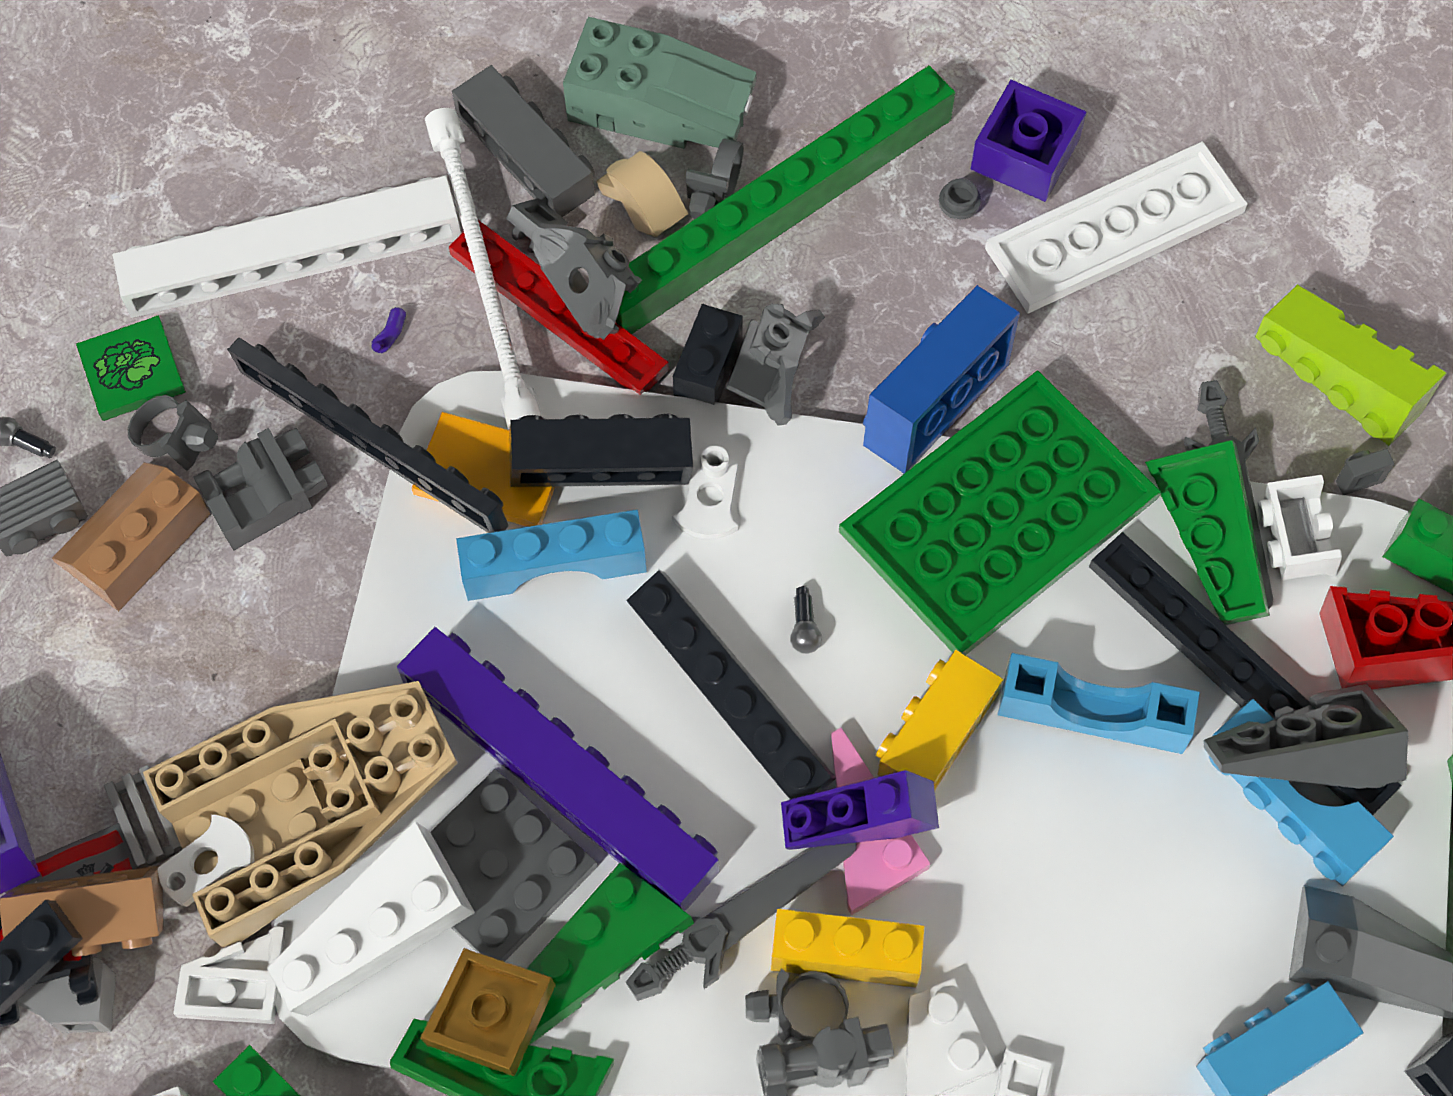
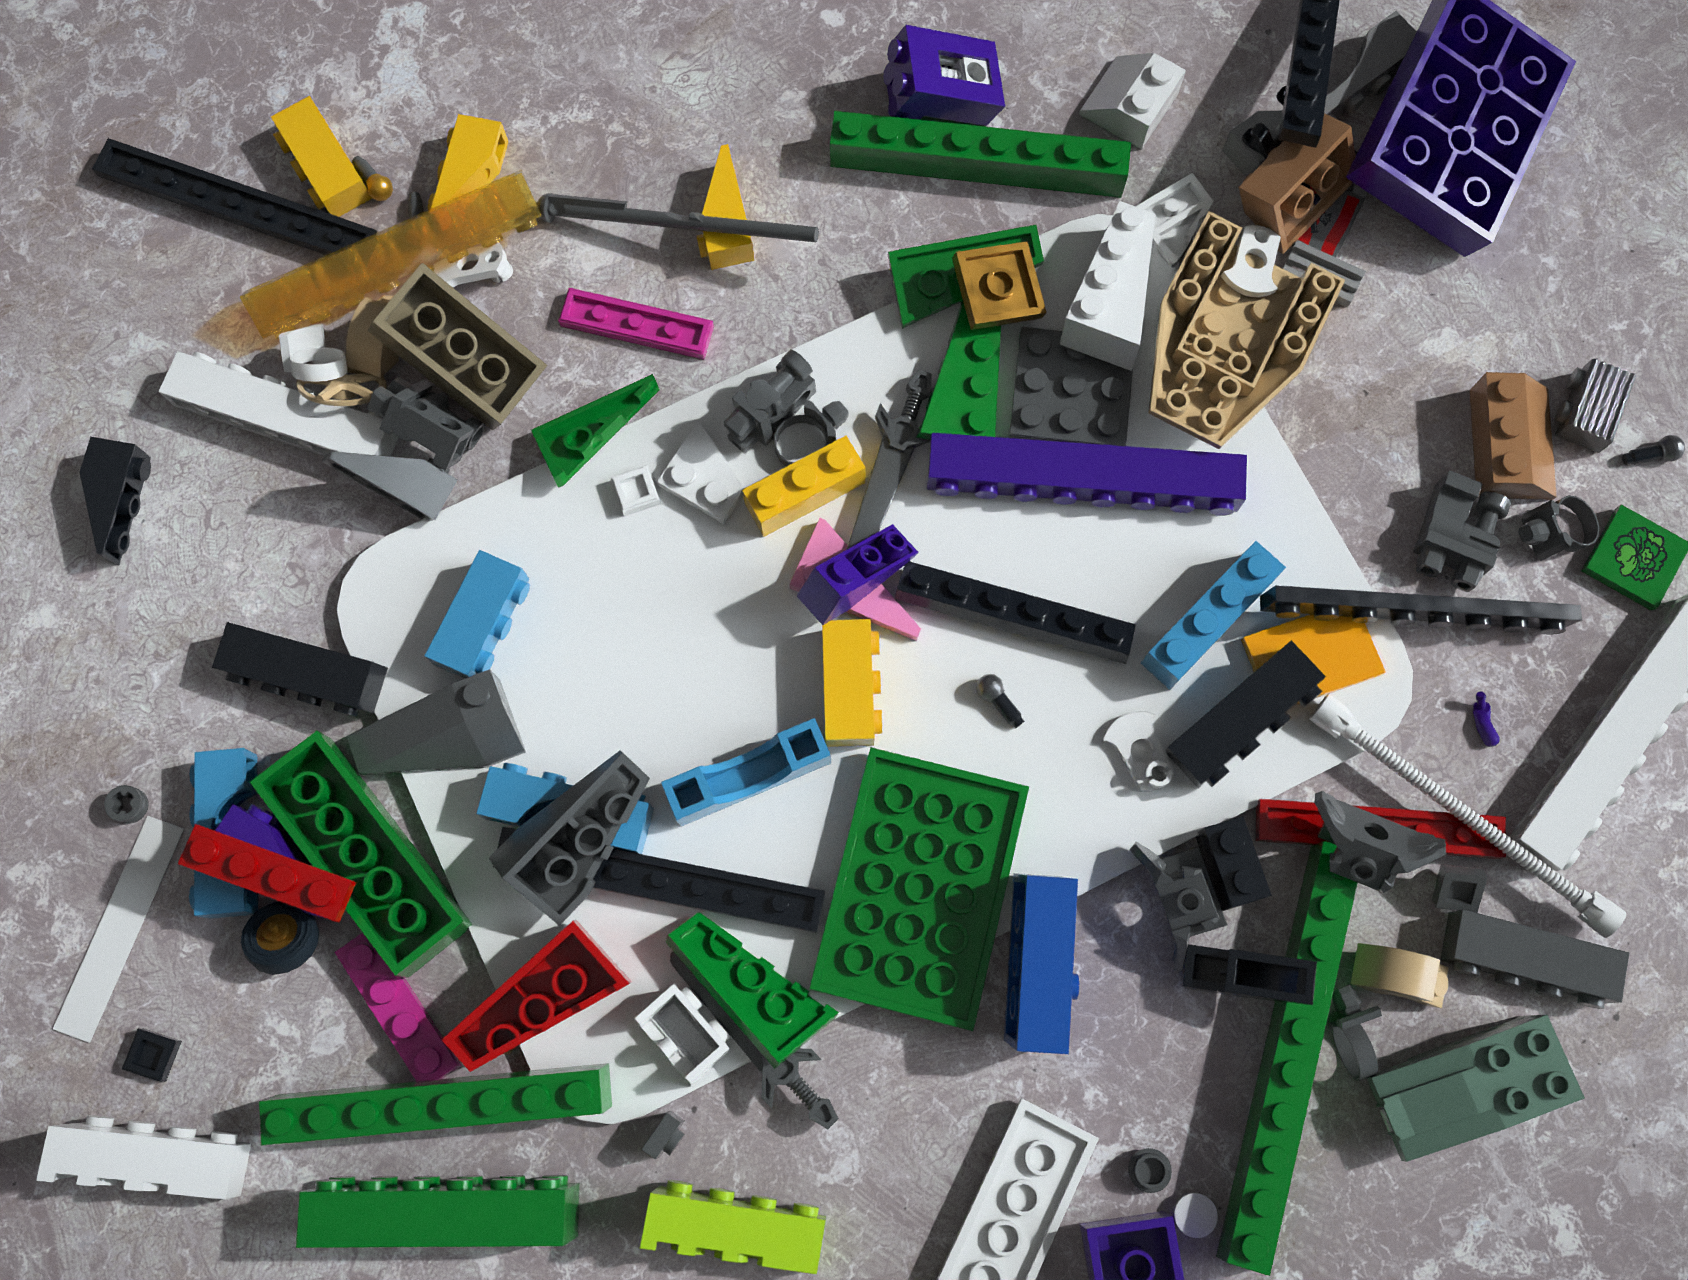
camera: 145 degrees right, 10 degrees up
(768, 259) = (1250, 974): none -> black slope
(946, 152) = (1195, 1215): none -> white tile

